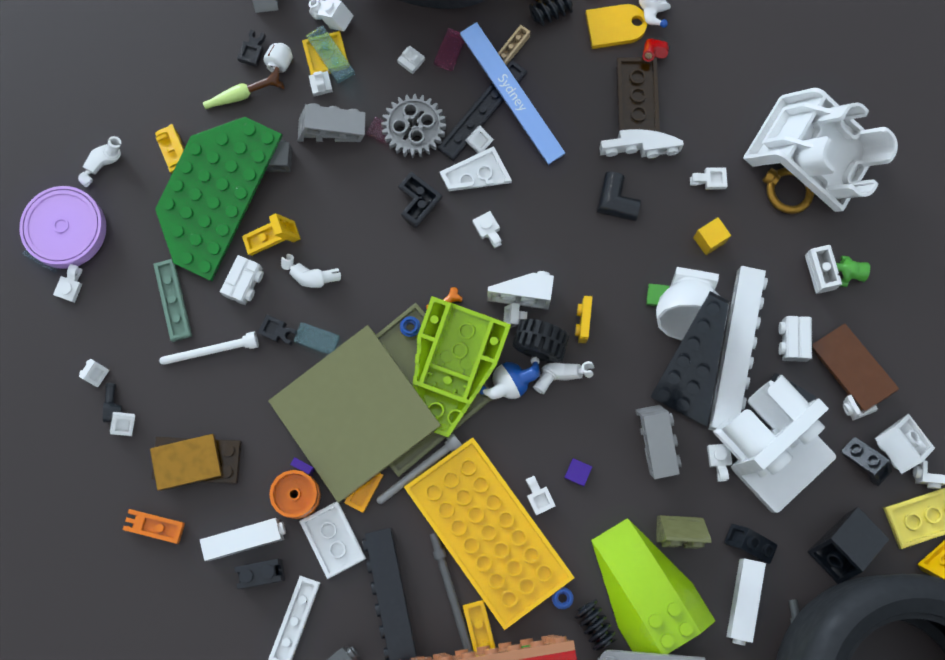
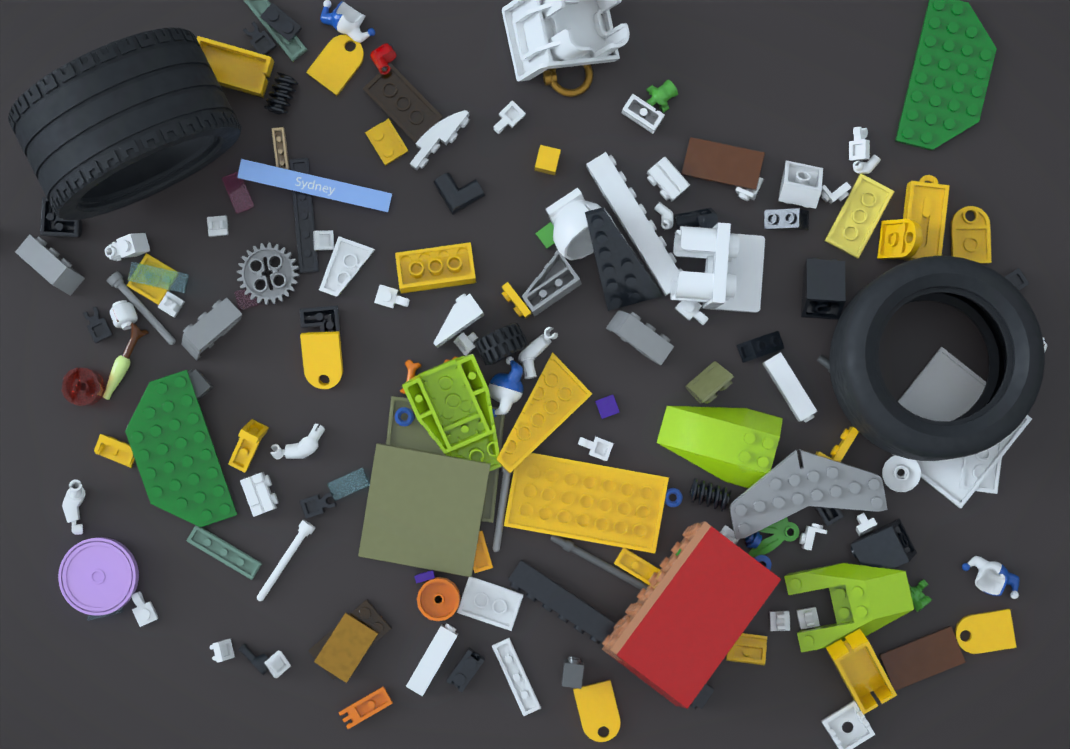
camera: 45 degrees left, 10 degrees up
(195, 80) = (72, 383): none -> clear red brick
(298, 30) = (117, 281): none -> light grey piece
(392, 222) = (322, 357): none -> yellow tile
(534, 425) = (548, 406): none -> yellow wing
(545, 238) = (435, 267): none -> yellow slope
(597, 113) = (386, 142): none -> yellow plate
(624, 333) = (551, 285): none -> light grey wedge
(768, 367) = (666, 216): none -> white arm

